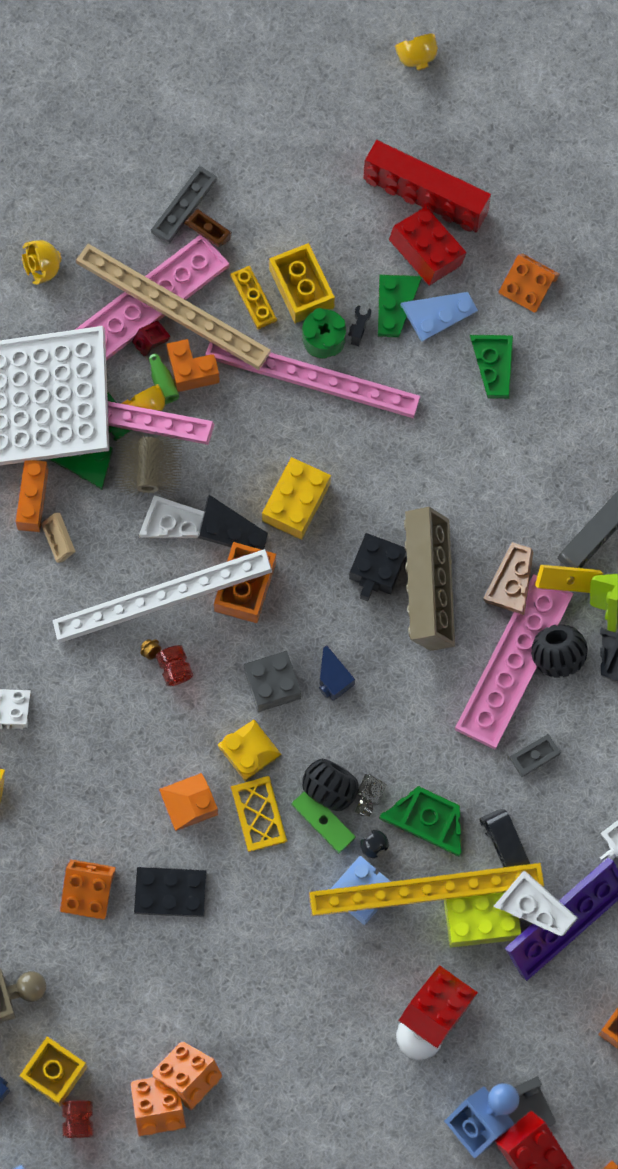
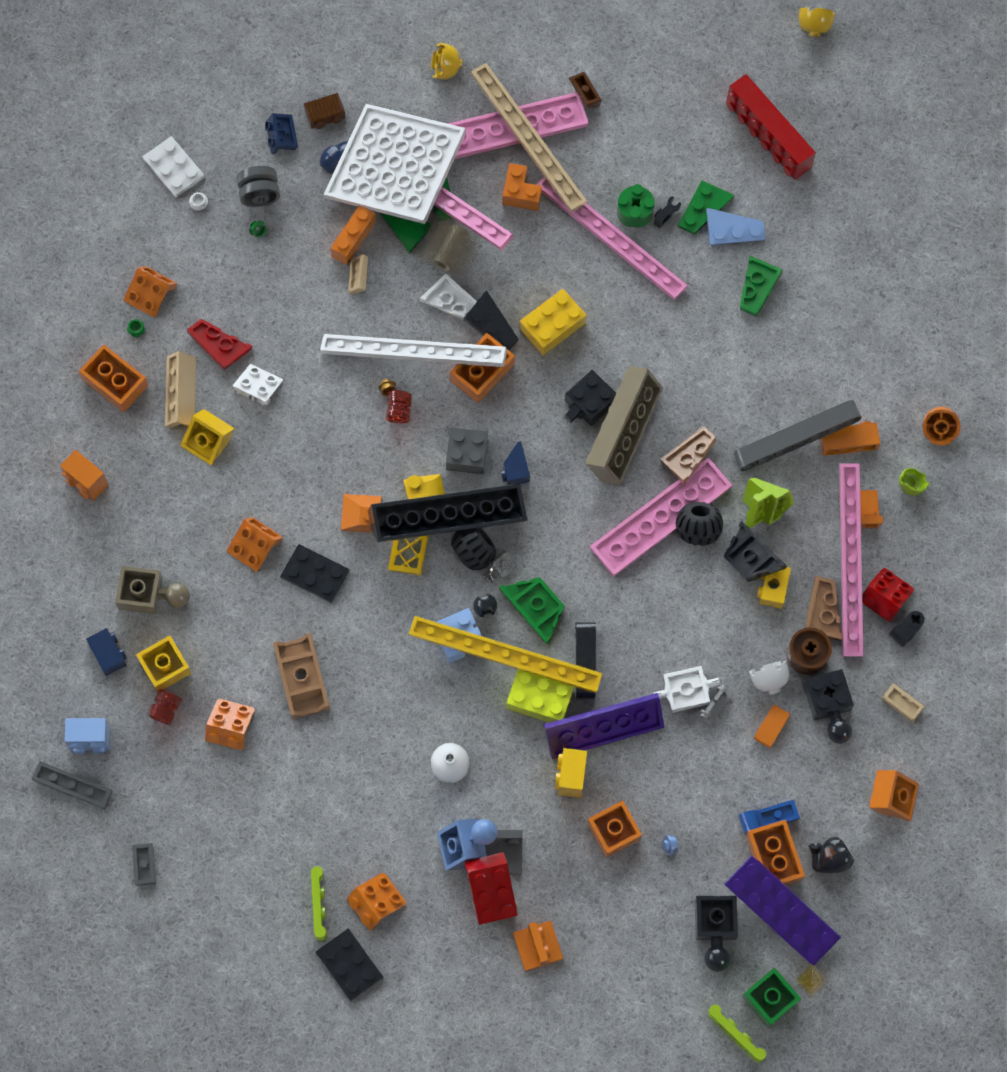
camera: 25 degrees right, 0 degrees up
(150, 337) = (501, 154): dark red bracket -> none
(150, 399) = (476, 198): yellow cylinder -> none
(163, 377) = (494, 191): bright green piece -> none
(184, 204) = (576, 64): dark grey plate -> none
(188, 1073) = (262, 711): orange bracket -> none
(225, 1035) = (304, 695): none -> medium nougat piece
(257, 307) = (595, 165): yellow tile -> none
(287, 762) = (447, 513): none -> black slope
(301, 282) = (636, 159): yellow brick -> none
(333, 831) = (458, 582): bright green tile -> none
(427, 245) = (749, 173): red brick -> none
(438, 1006) = (472, 745): red brick -> none
(528, 282) = (815, 233): orange bracket -> none
(535, 755) = (641, 594): dark grey plate -> none
(535, 904) = (582, 702): white wing -> none
(558, 987) = (571, 778): none -> yellow brick
(565, 578) = (723, 466): yellow tile -> none

